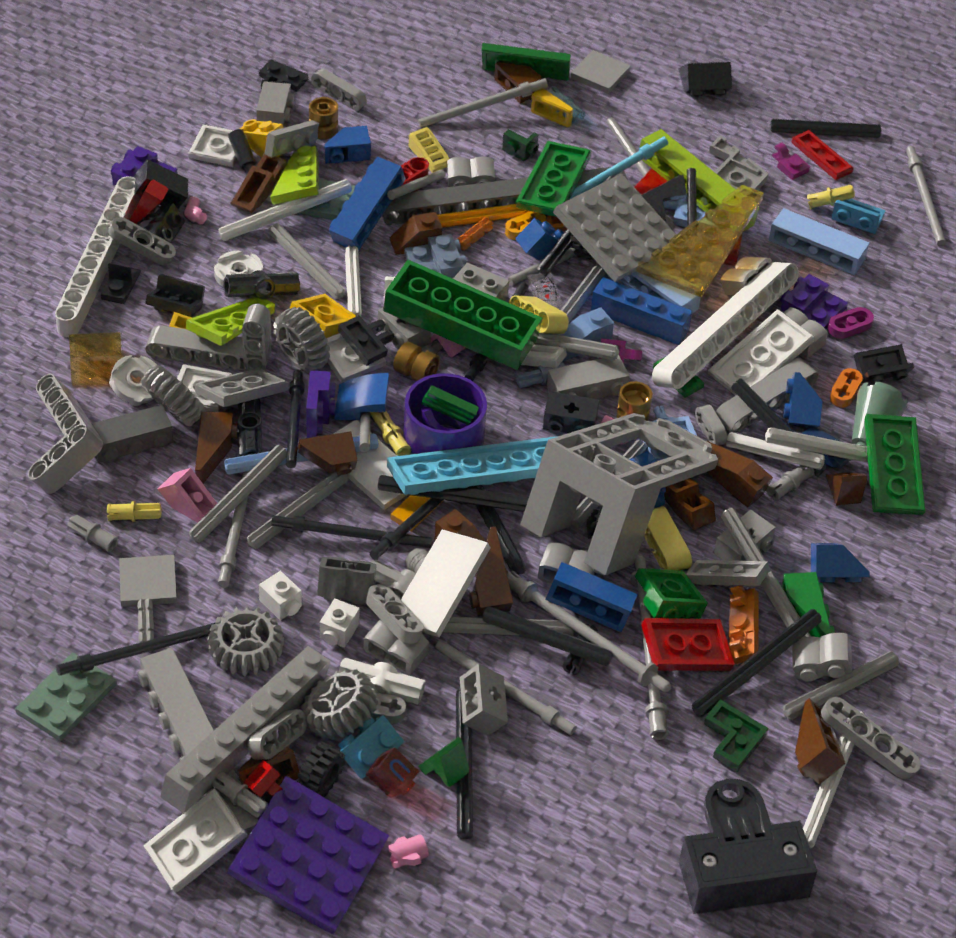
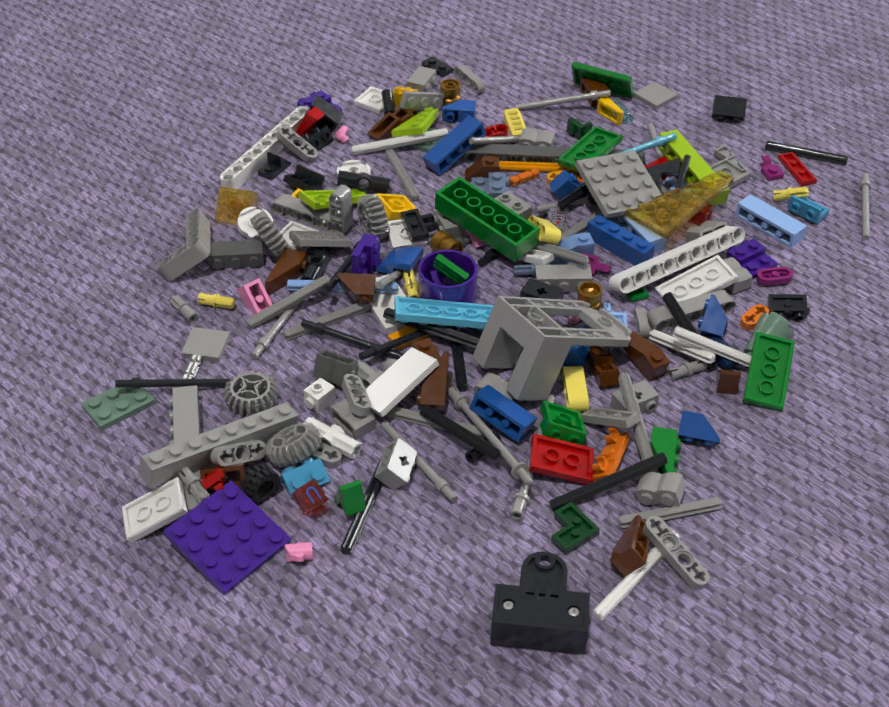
camera: 20 degrees right, 5 degrees down
(280, 595) = (287, 370): white brick -> none
(353, 280) = (427, 191): white axle -> none

